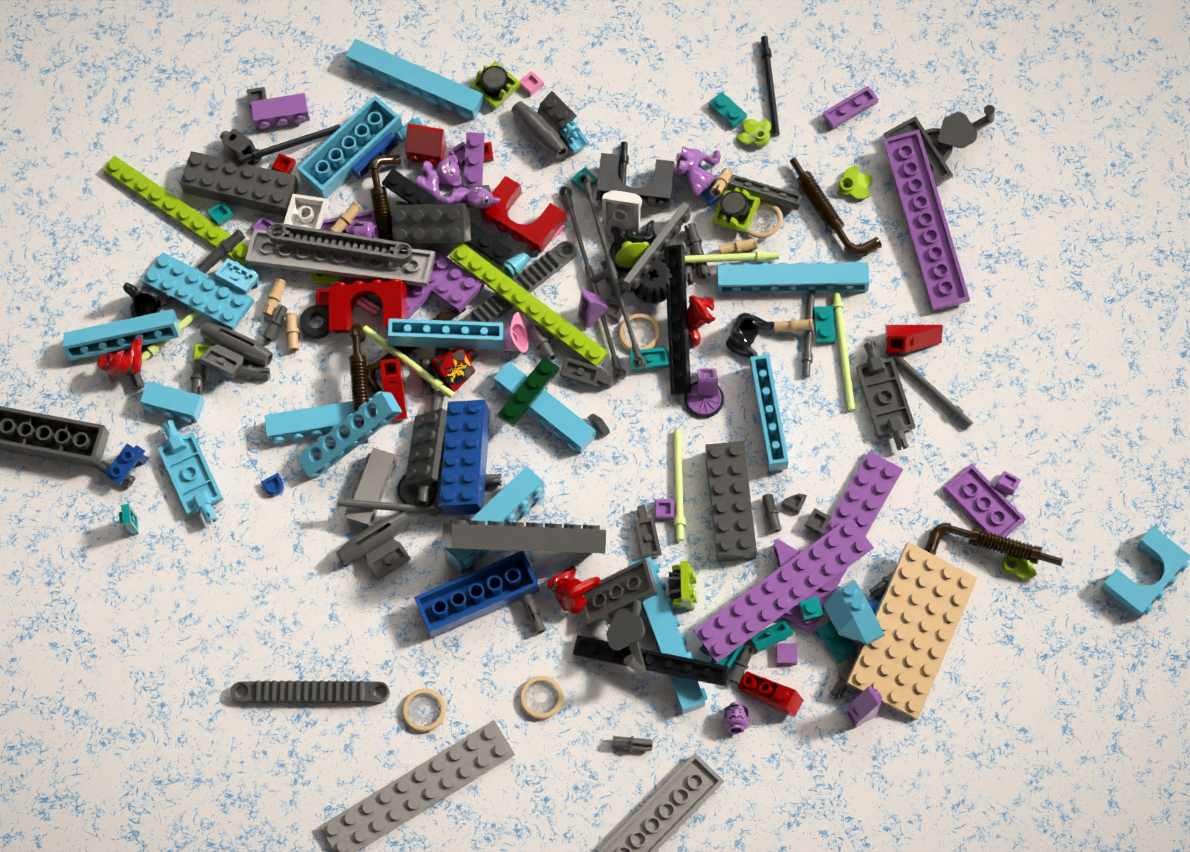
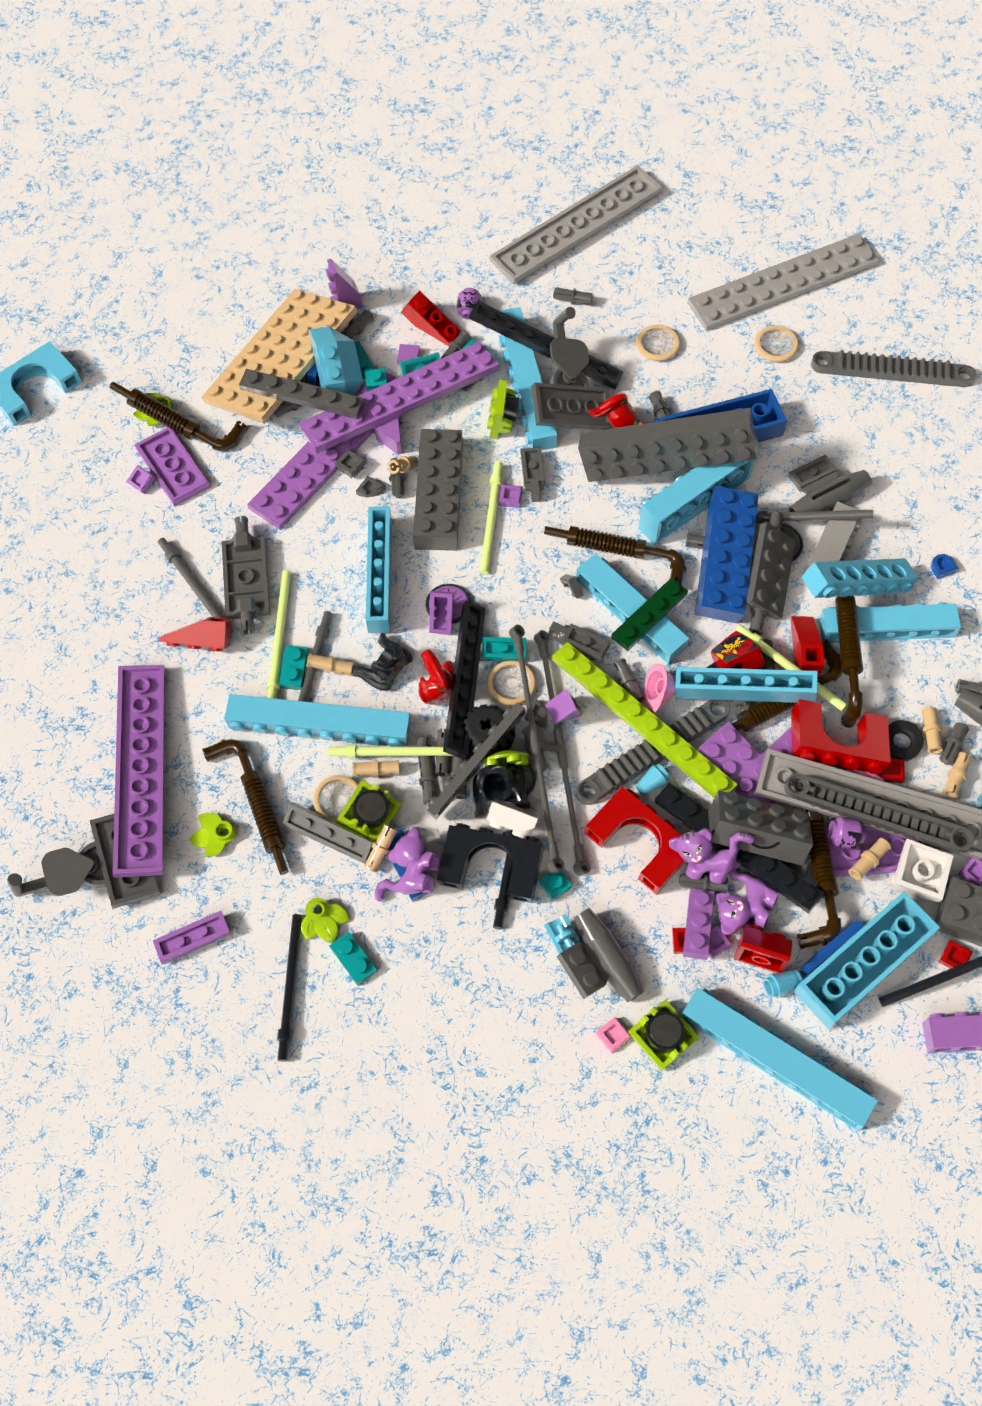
camera: 175 degrees left, 5 degrees down
(559, 466) = (619, 545): none -> dark brown piece
(766, 517) = (402, 464): none -> tan pin
(875, 566) = (301, 393): none -> dark grey plate

